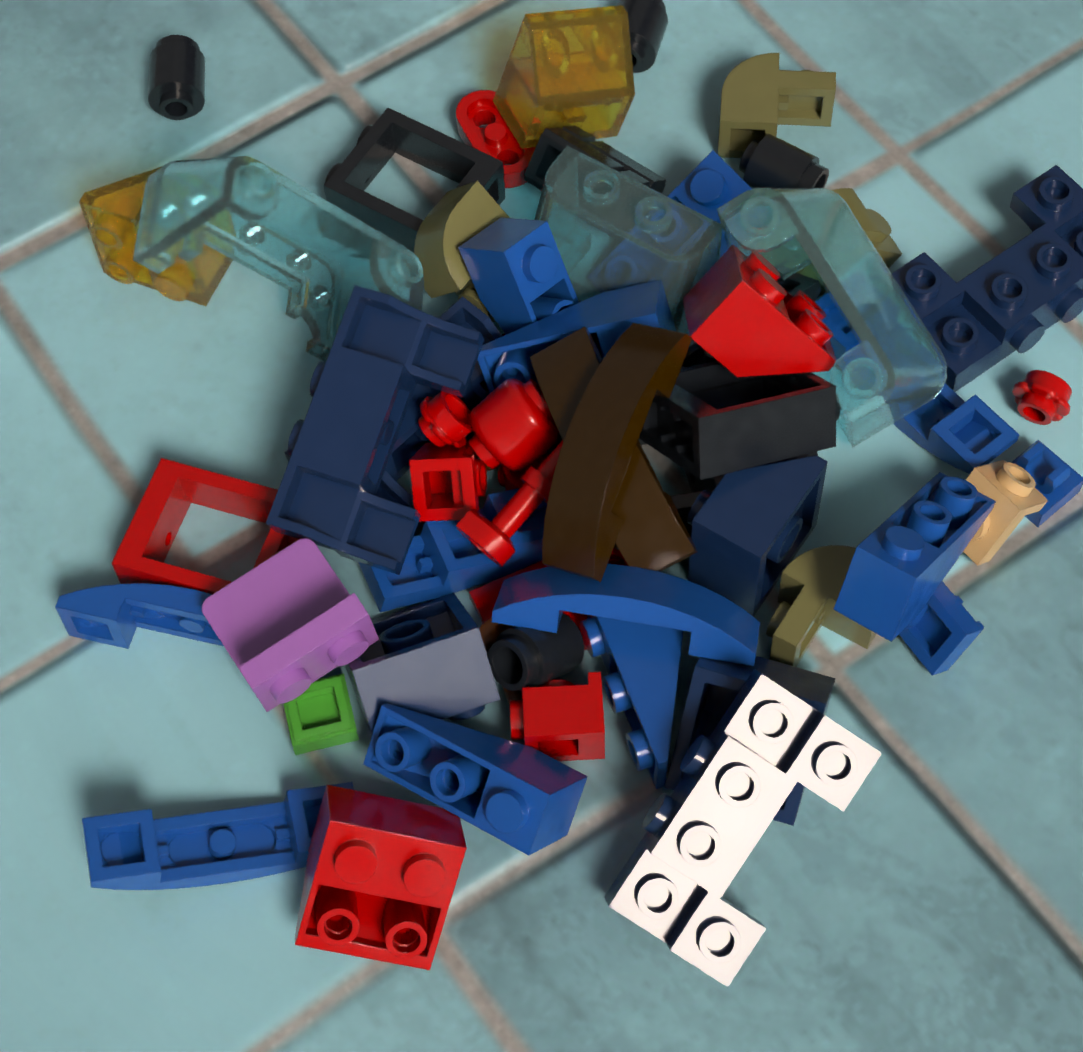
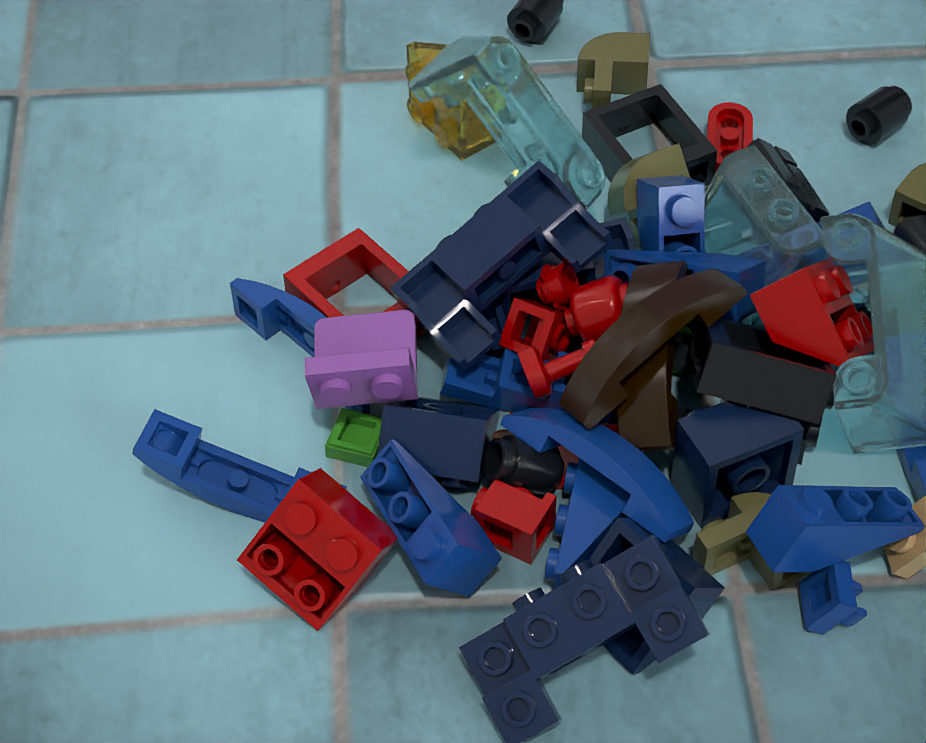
camera: 30 degrees right, 10 degrees down
(311, 107) = (613, 66): none -> olive brick
(568, 73) = (803, 111): clear yellow slope -> none

